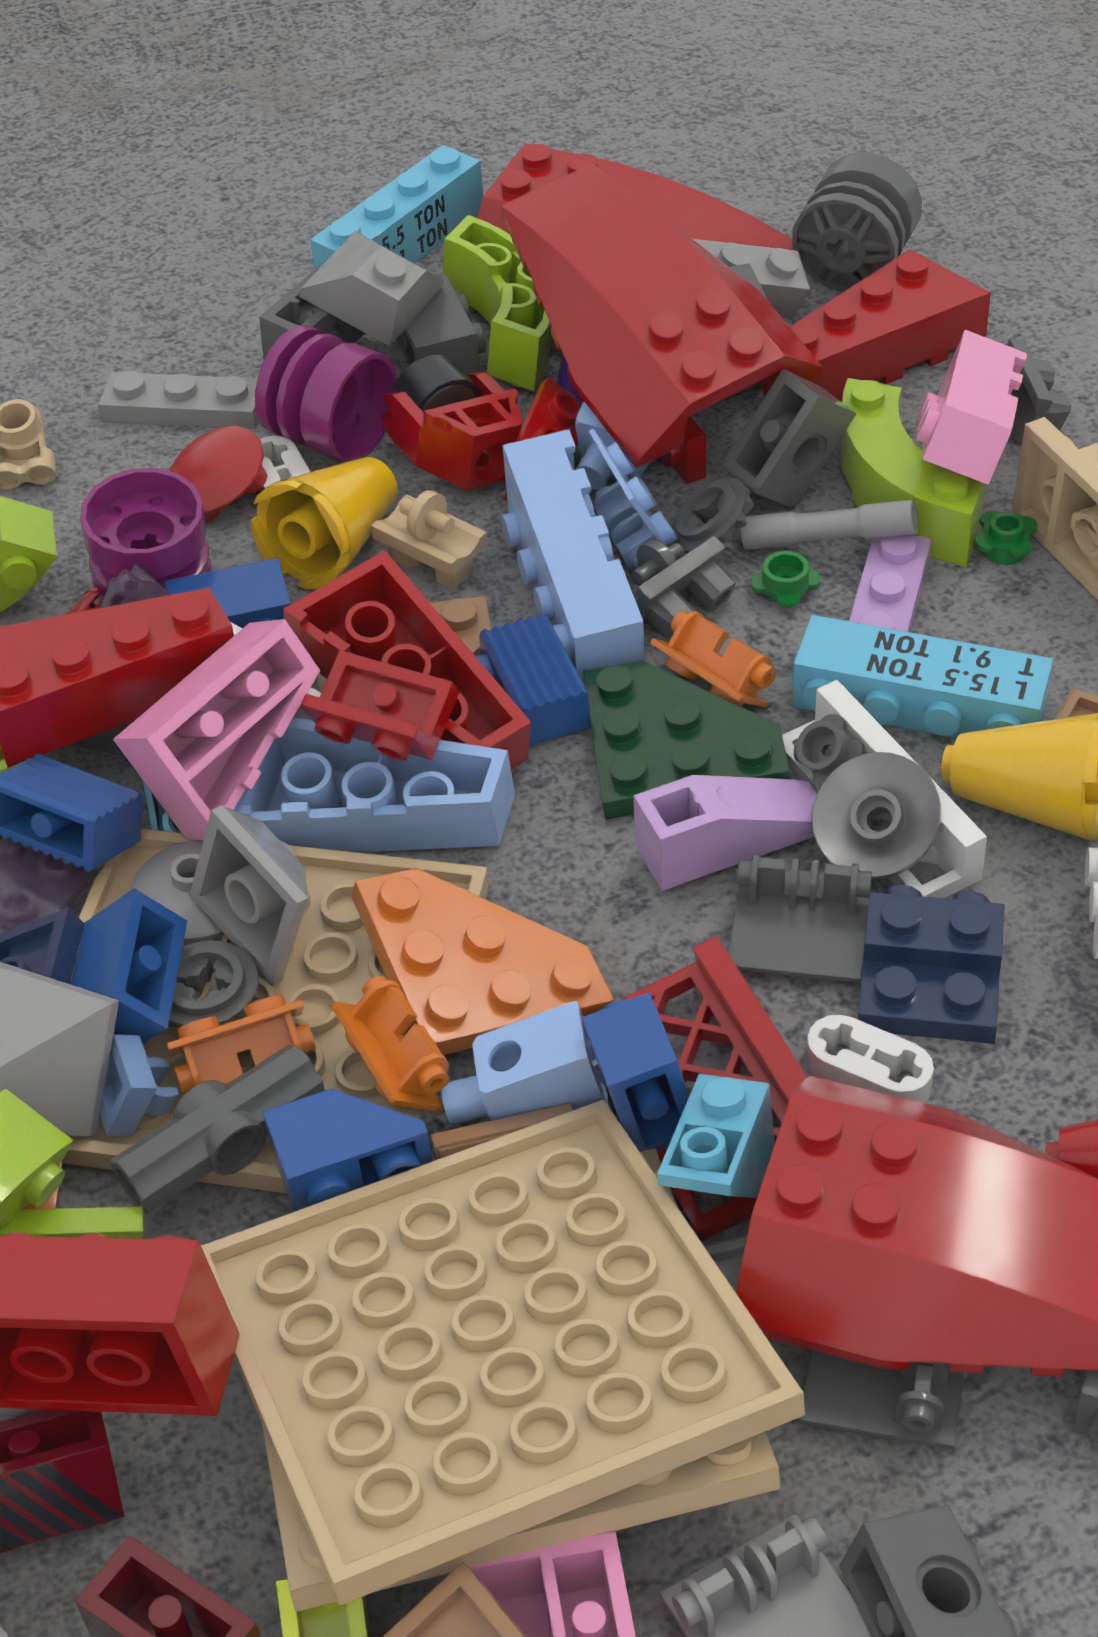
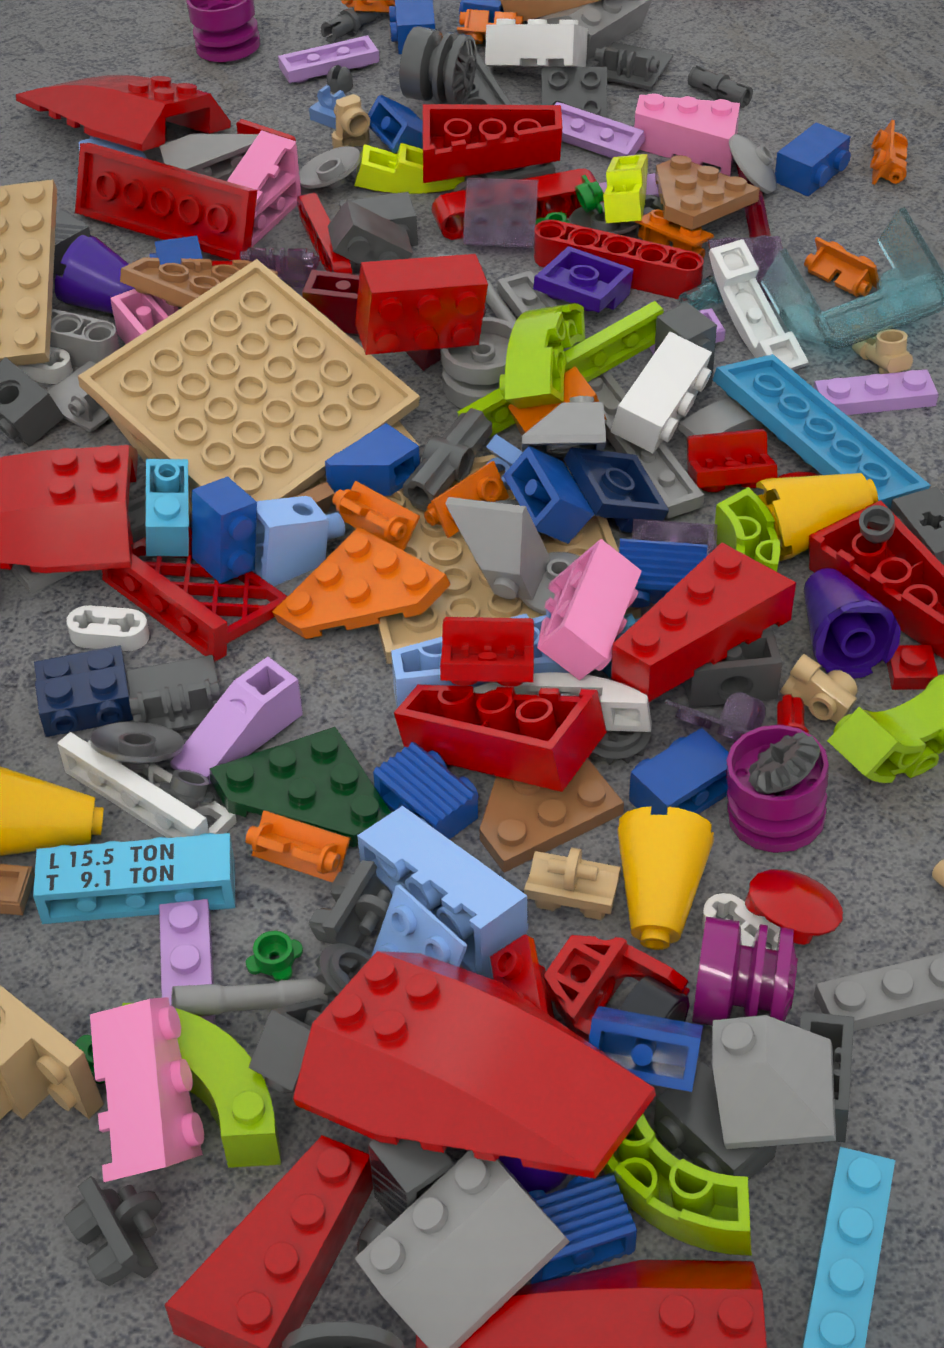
camera: 155 degrees right, 0 degrees up
(114, 512) = (784, 763): none -> dark grey gear
(471, 319) = (649, 1046): none -> blue brick

